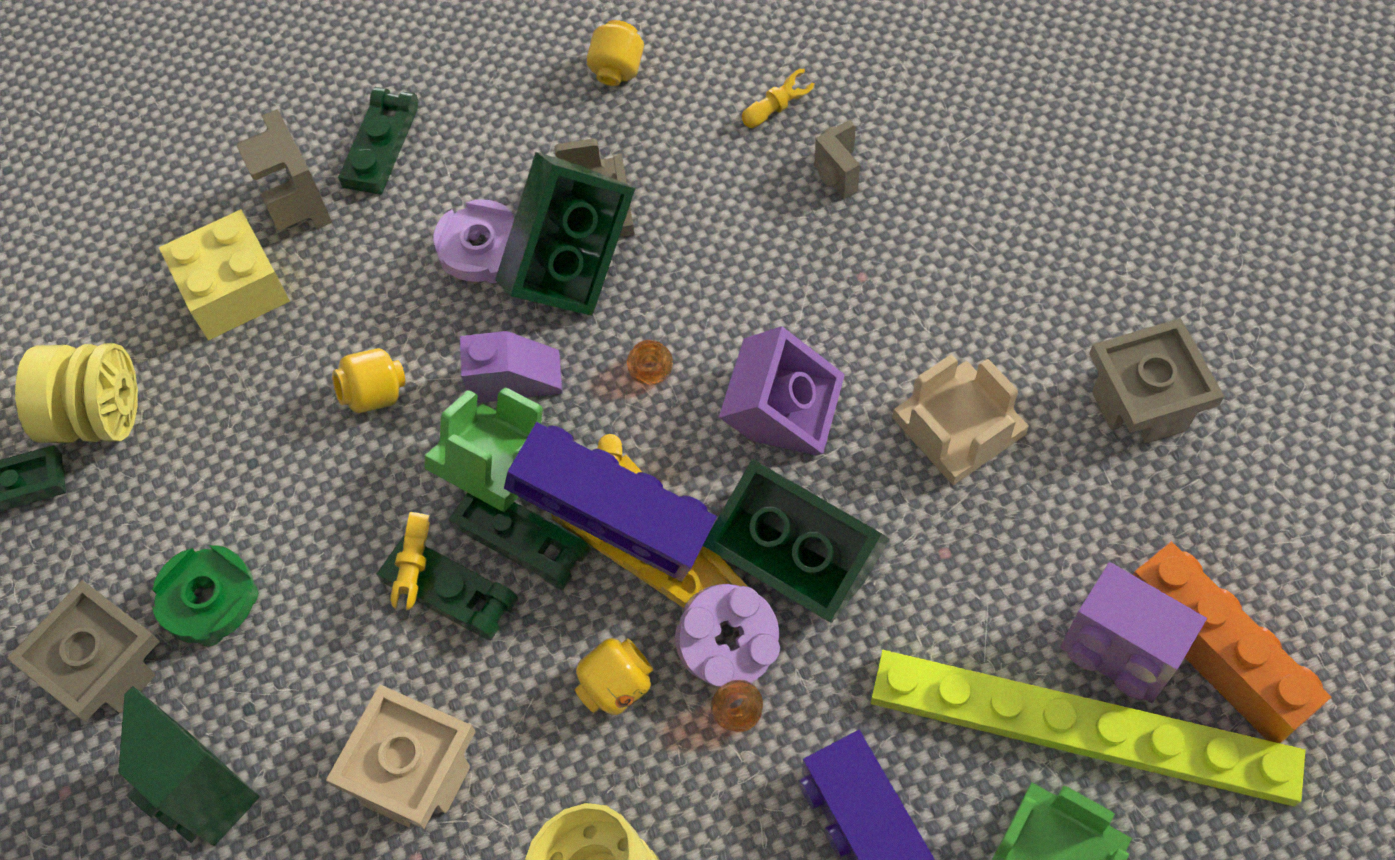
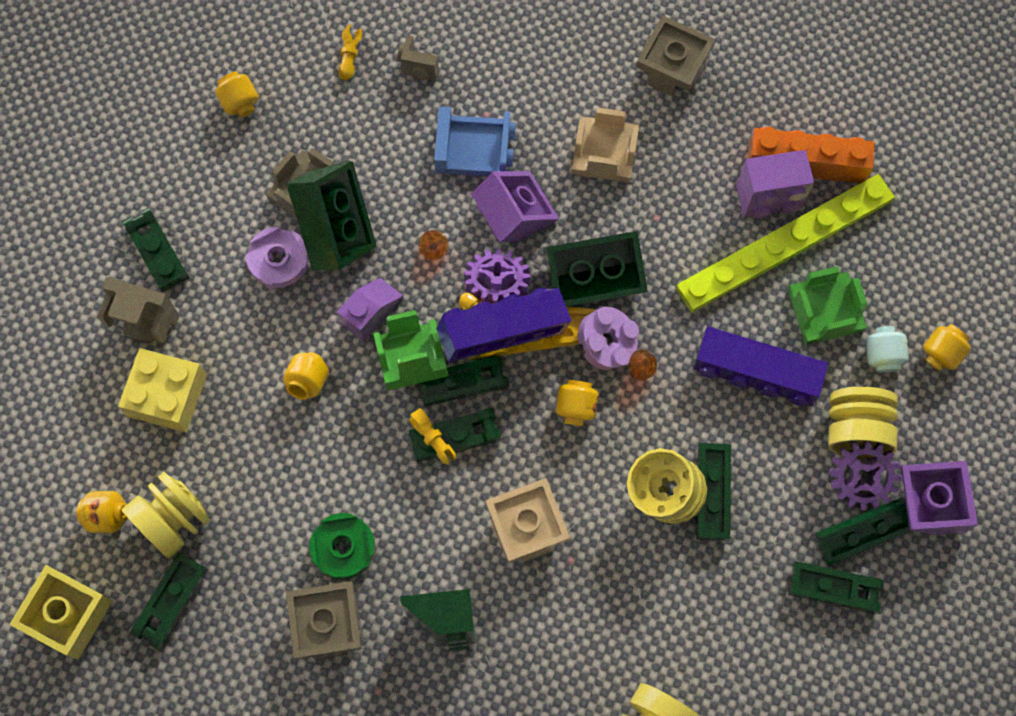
camera: 50 degrees left, 10 degrees up
(33, 328) = (101, 512): none -> yellow head
(675, 452) = (496, 276): none -> medium lavender gear
(806, 289) = (473, 144): none -> medium blue panel

